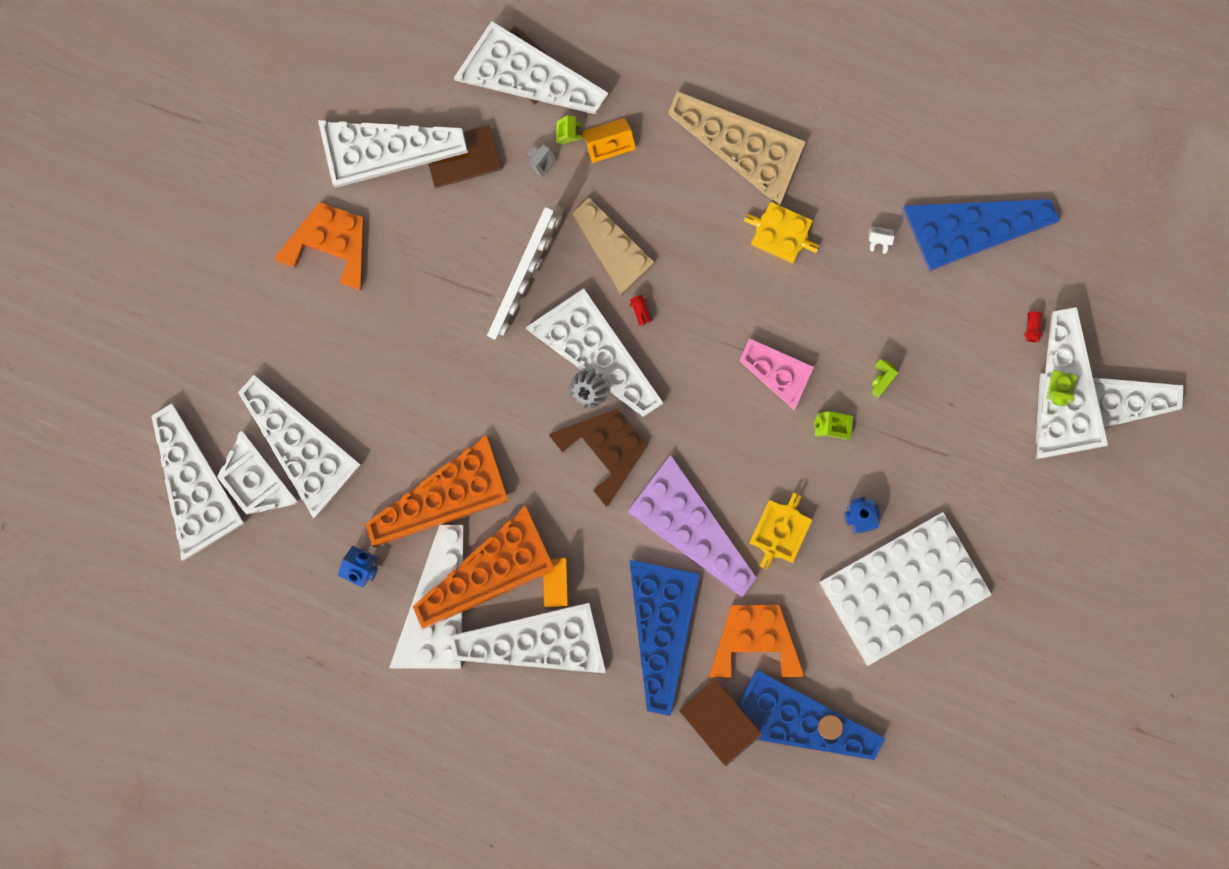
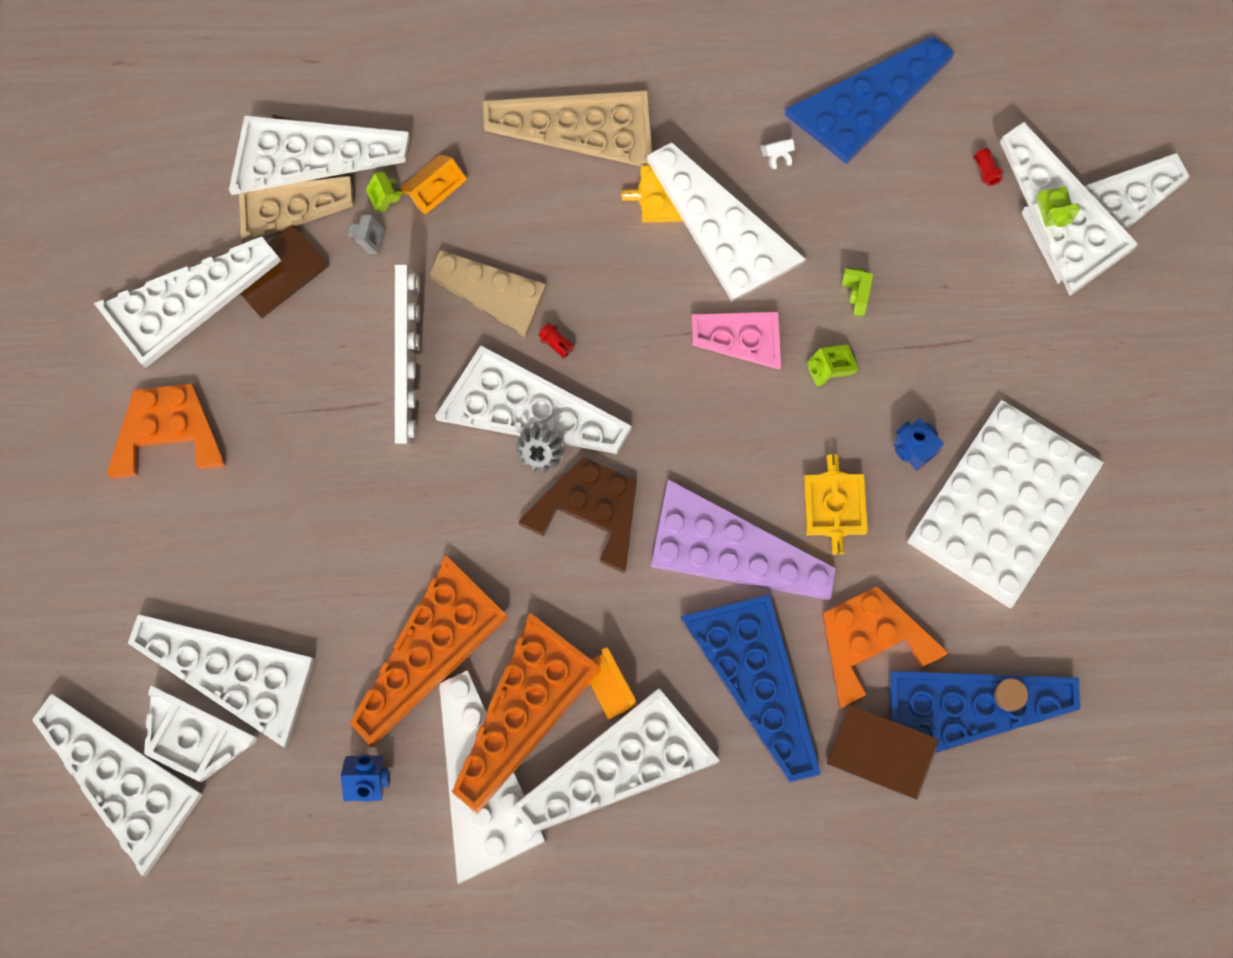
camera: 25 degrees left, 10 degrees down
(495, 108) = (293, 204): none -> tan wing
(808, 288) = (730, 236): none -> white wing

